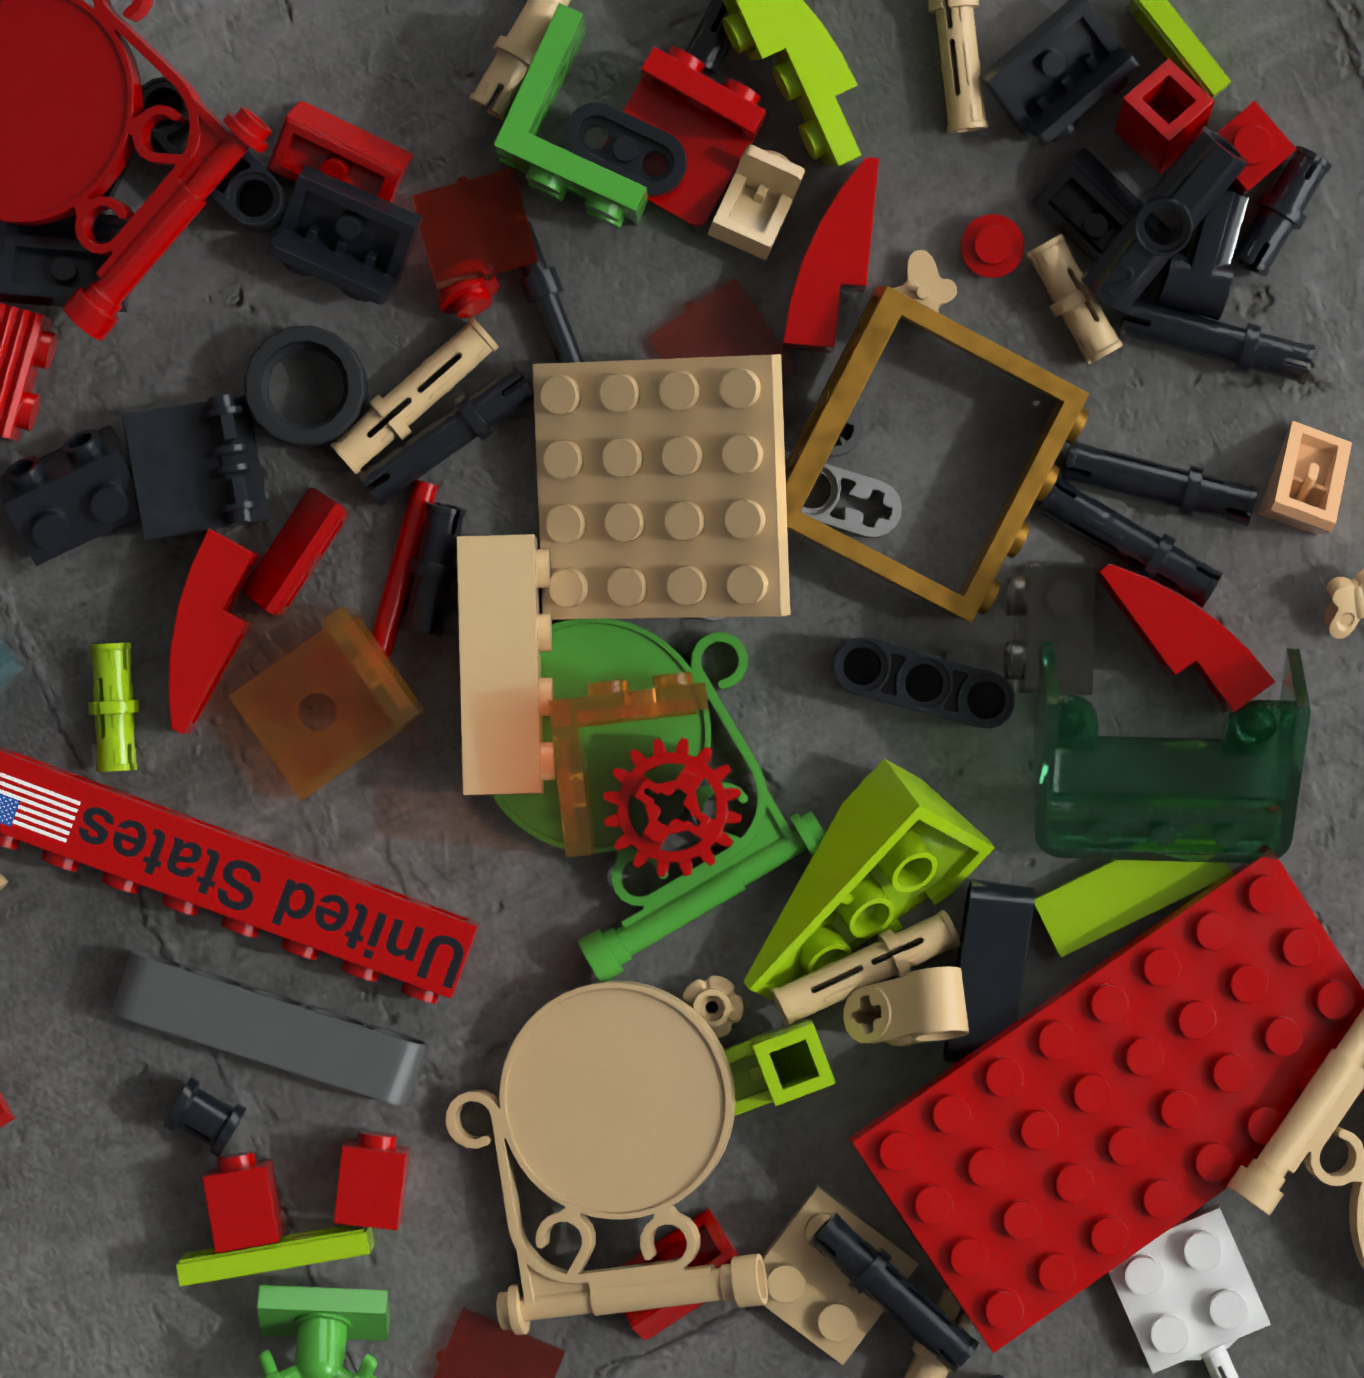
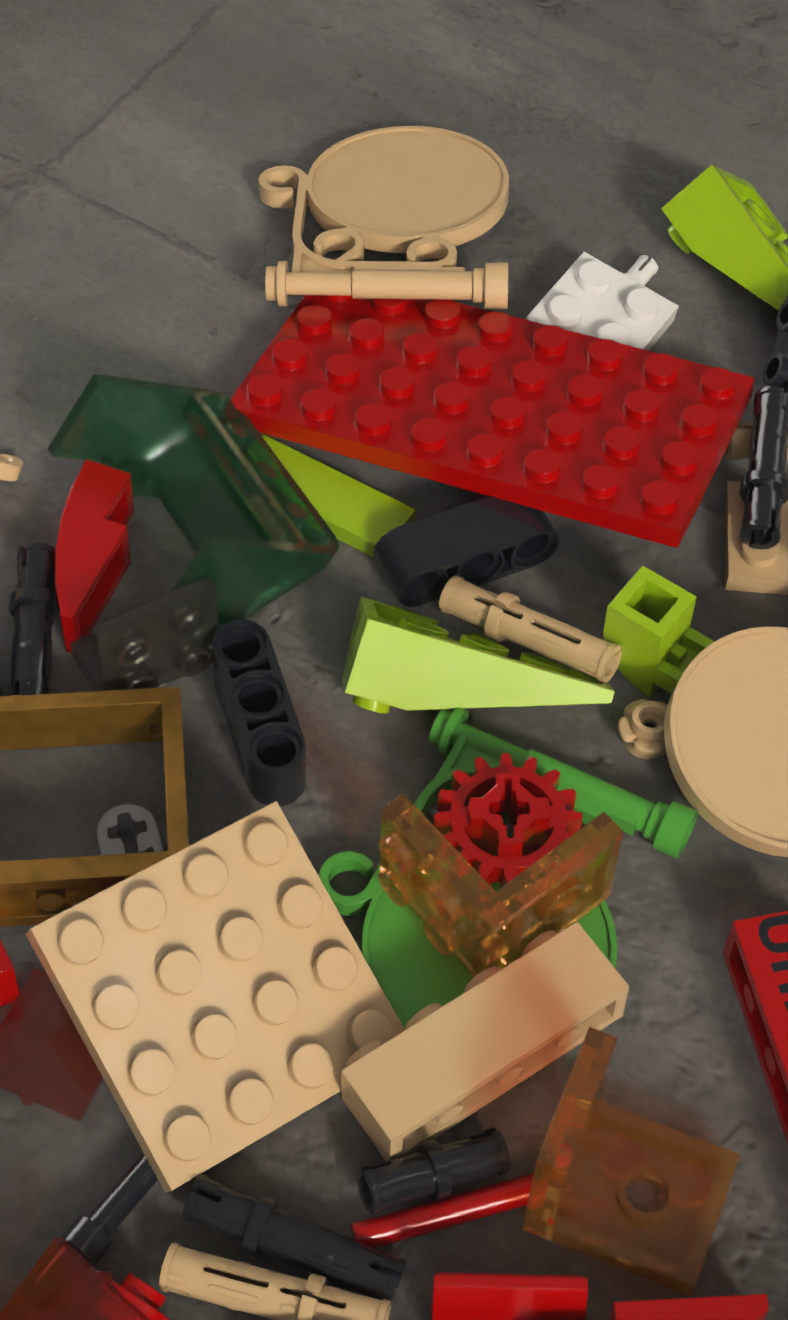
camera: 125 degrees left, 35 degrees down
(909, 1009) = (532, 556): tan piece -> none

